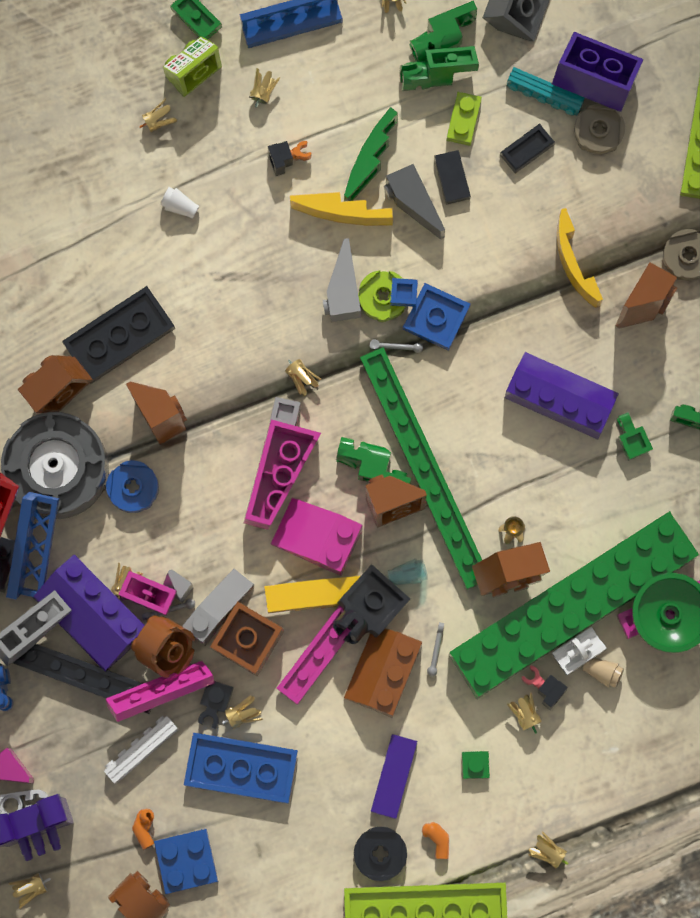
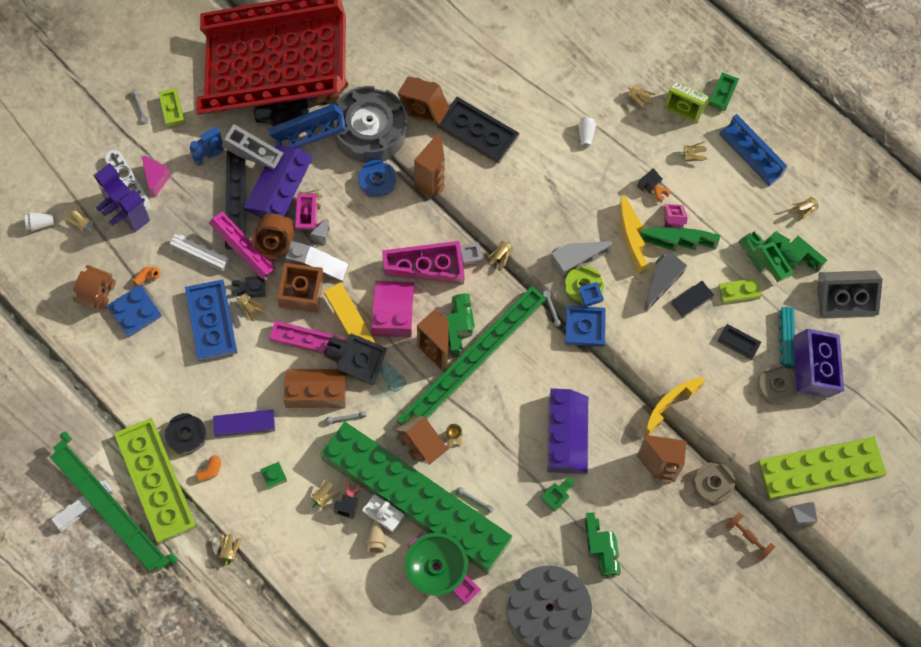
camera: 60 degrees right, 10 degrees down
(339, 149) = (674, 215): none -> dark pink slope
(582, 549) = (460, 491): none -> light grey hinge

